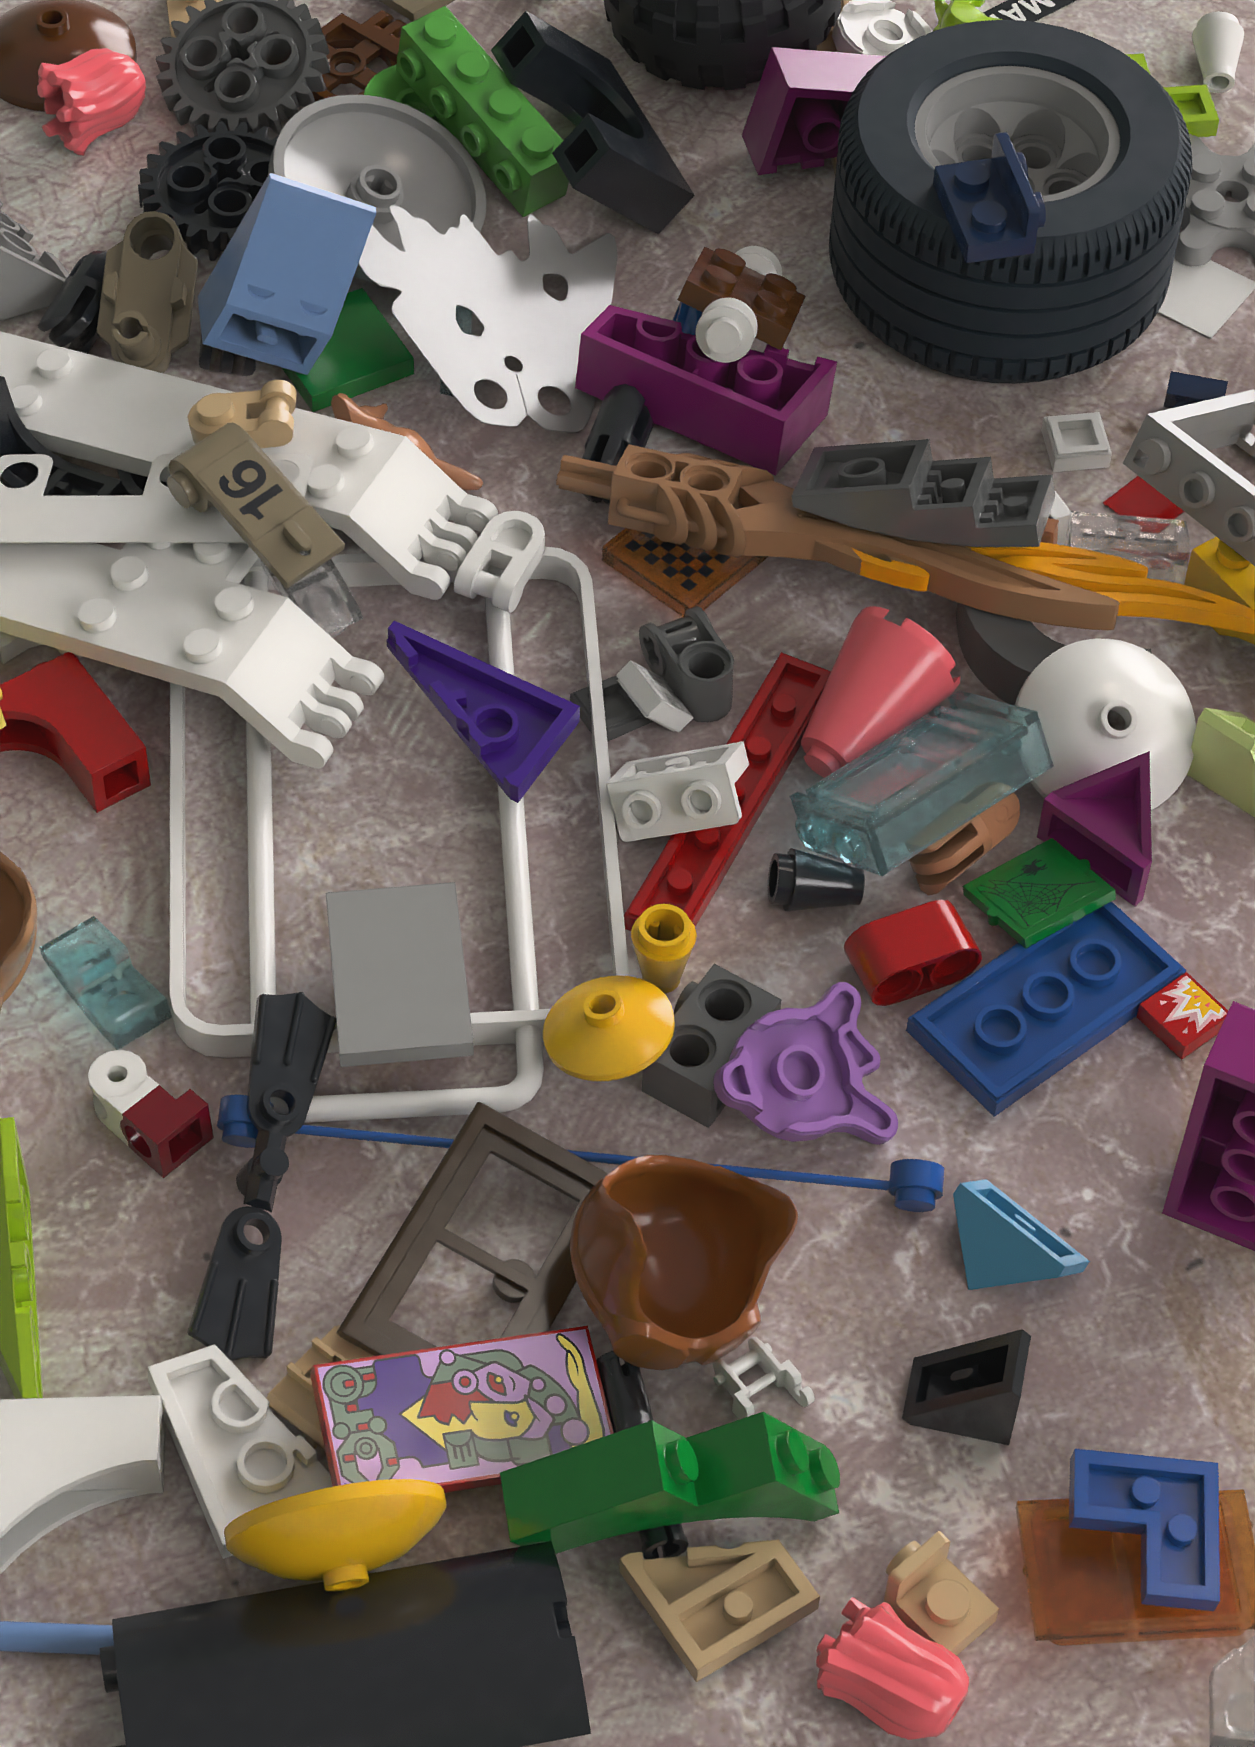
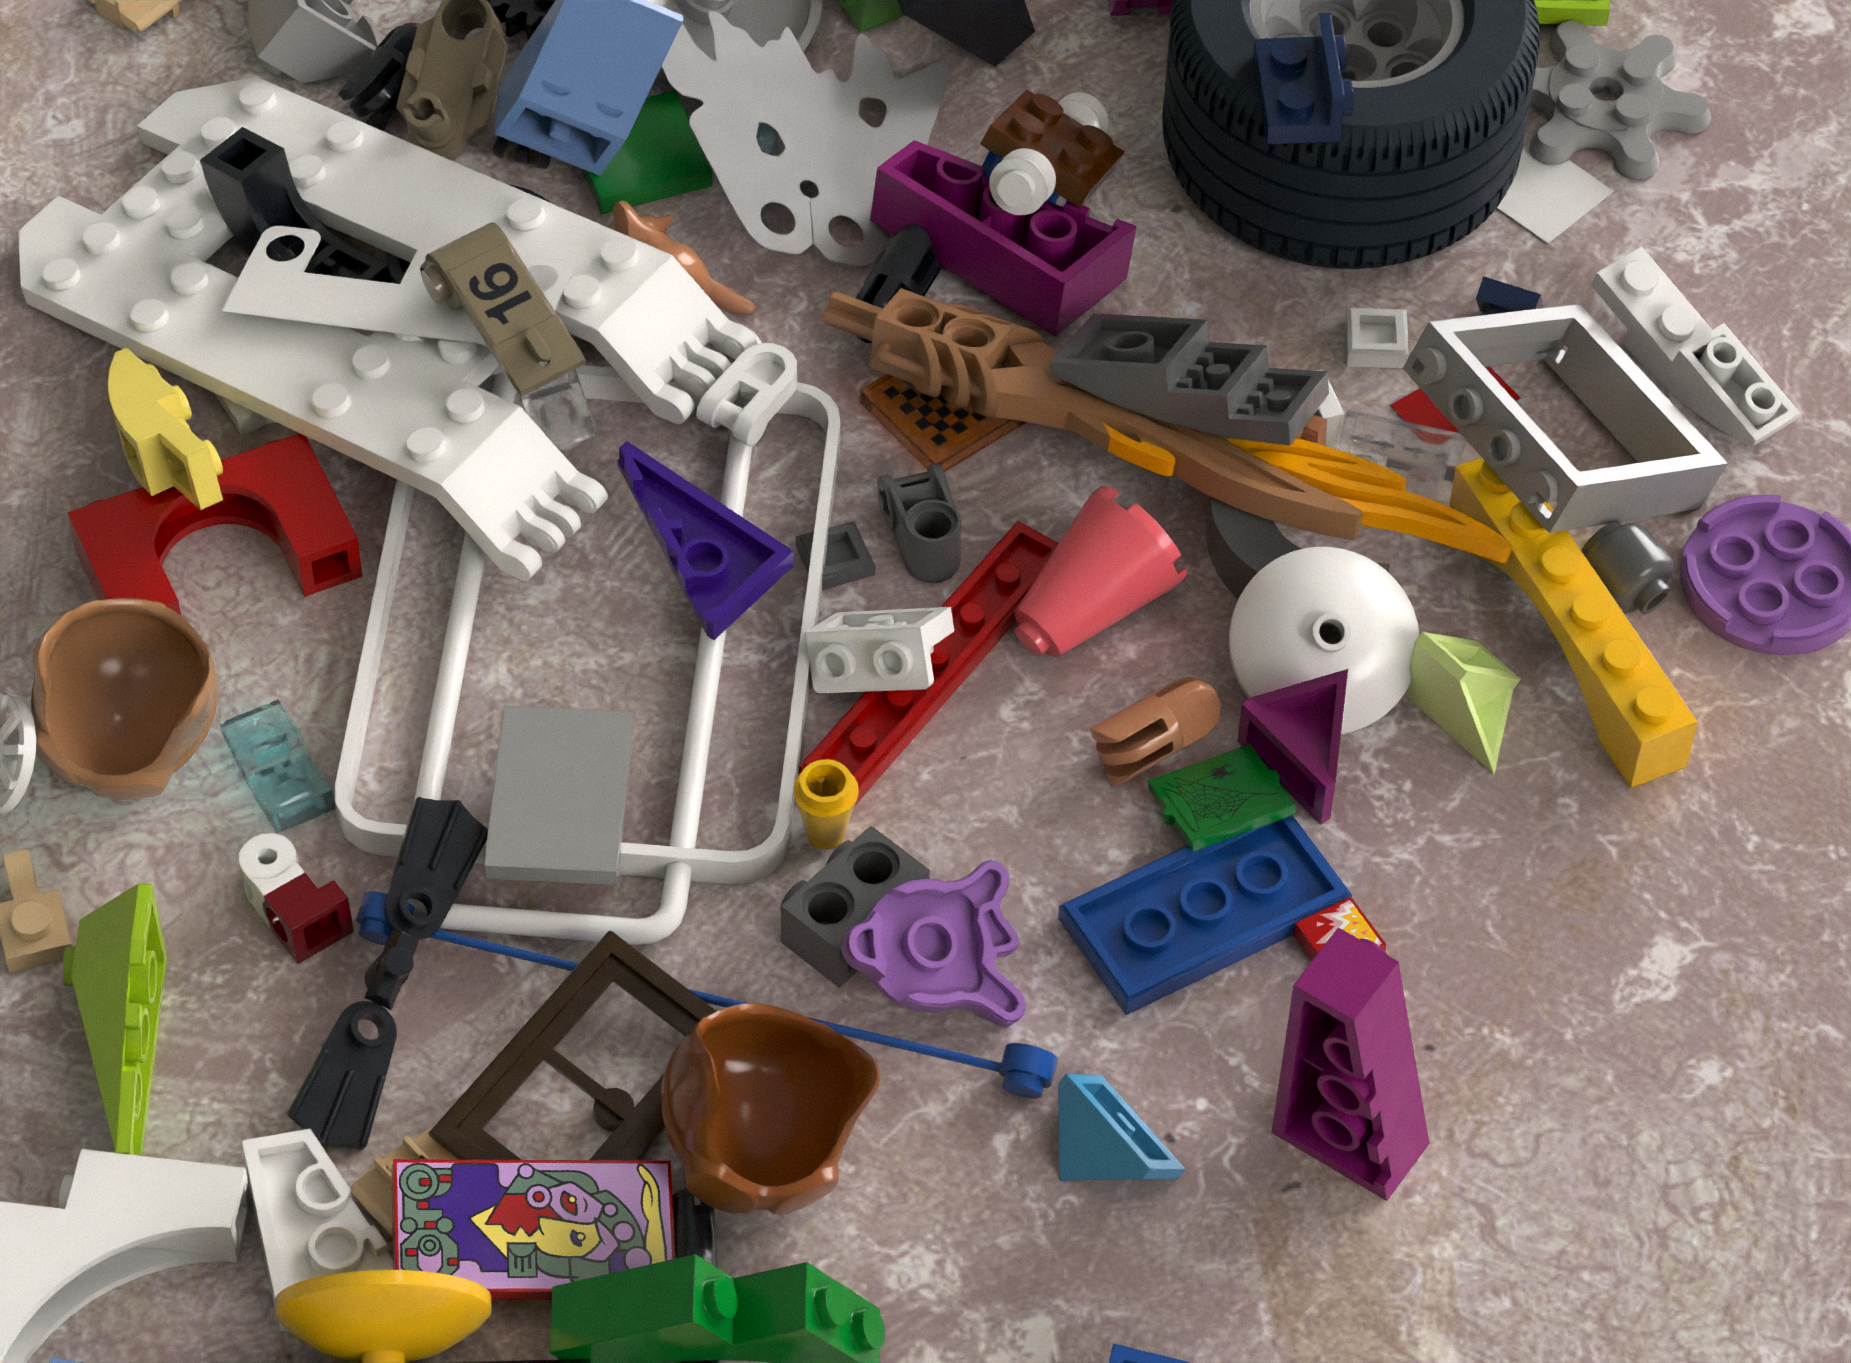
camera: 10 degrees right, 0 degrees up
(260, 413) = (524, 216): tan plate -> none
(608, 1028) = (753, 875): yellow dish -> none
(653, 697) = (876, 550): white tile -> none
(781, 1374) = (853, 1234): white piece -> none
(813, 882) = (995, 757): black cone -> none
(912, 952) = (1077, 840): red beam -> none
(922, 783) = (1122, 671): clear light blue door -> none
(970, 1388) = (1034, 1274): black slope -> none

